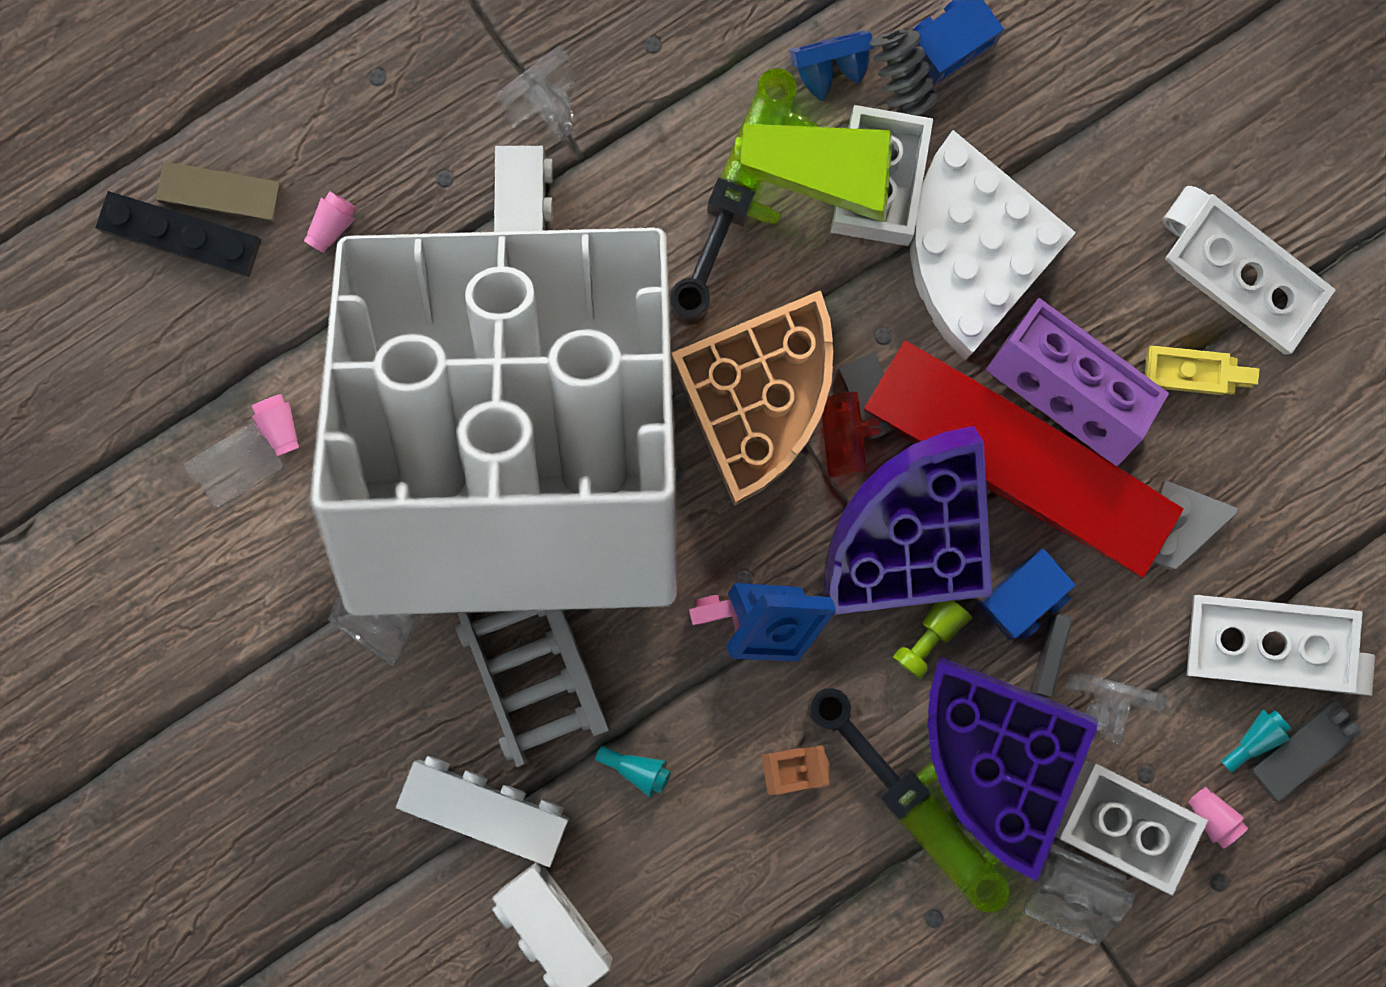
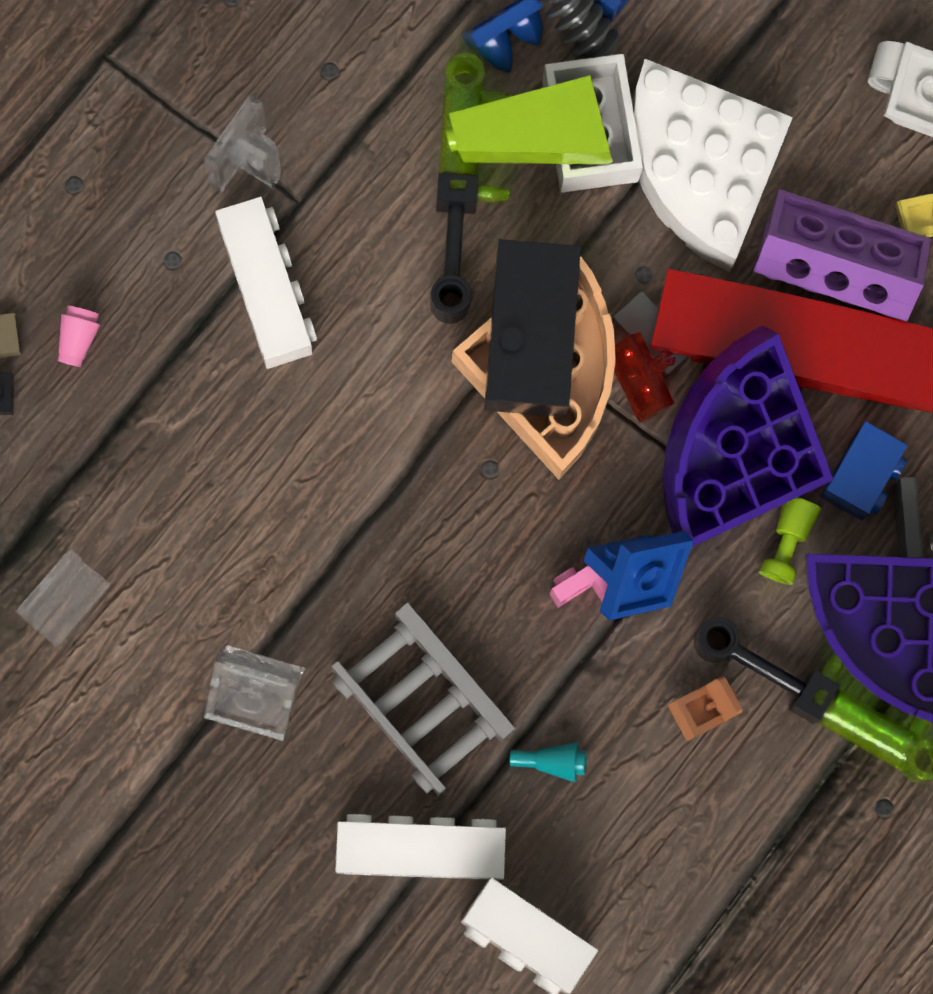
camera: 25 degrees left, 5 degrees down
(276, 423) = (90, 544): bright pink cone -> none
(498, 422) = (325, 462): white piece -> none
(751, 356) = (532, 328): none -> black brick

